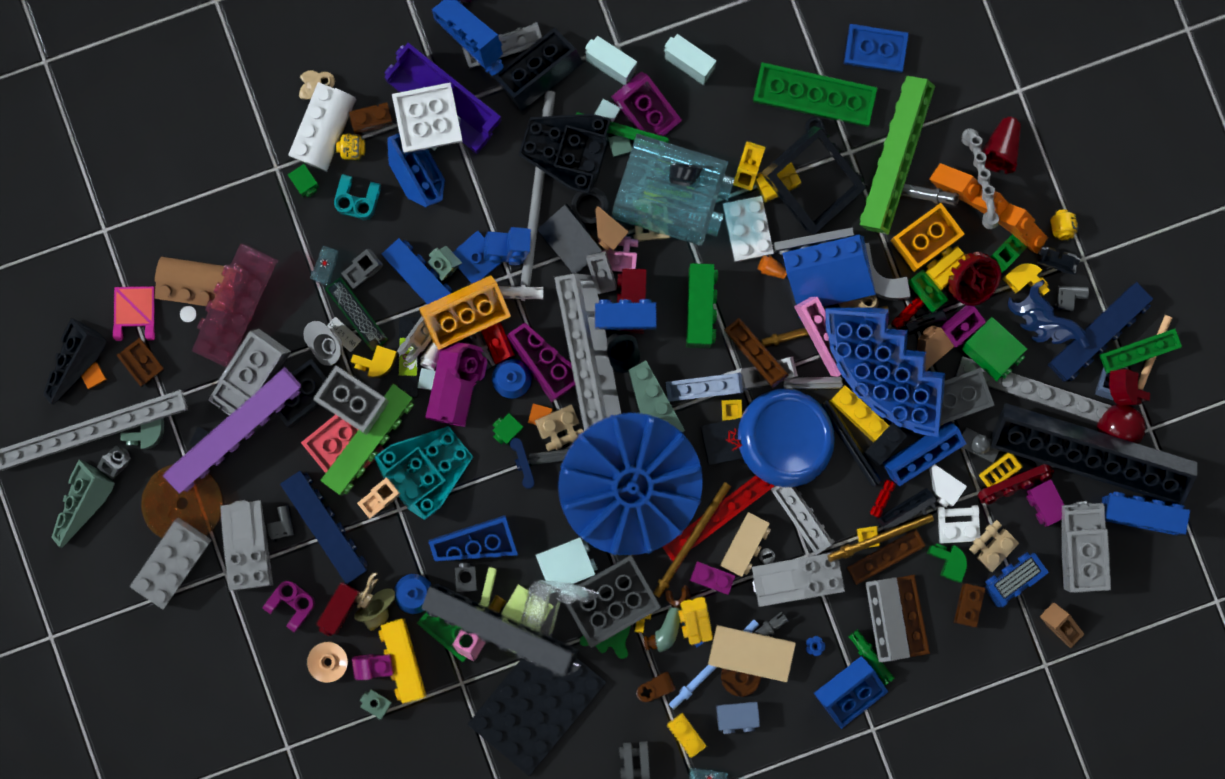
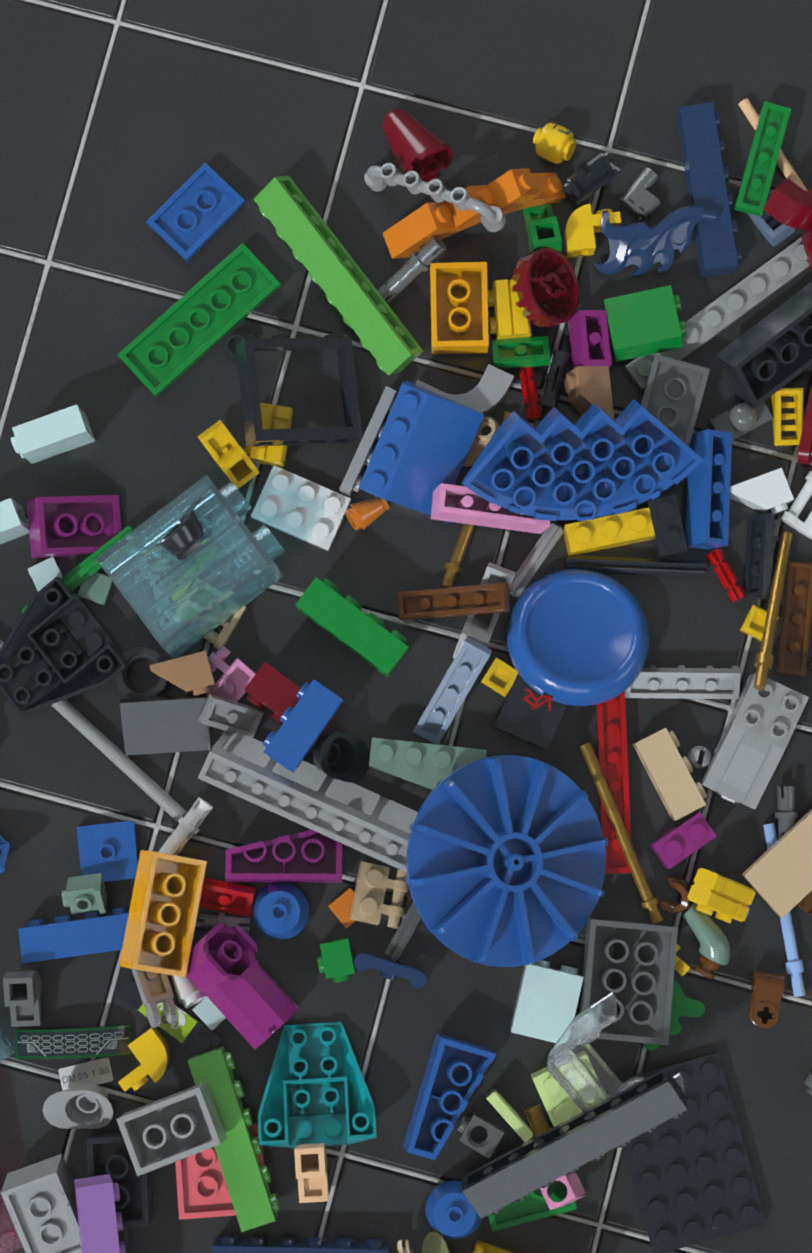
camera: 45 degrees left, 0 degrees up
(507, 247) = (122, 805): blue brick -> none

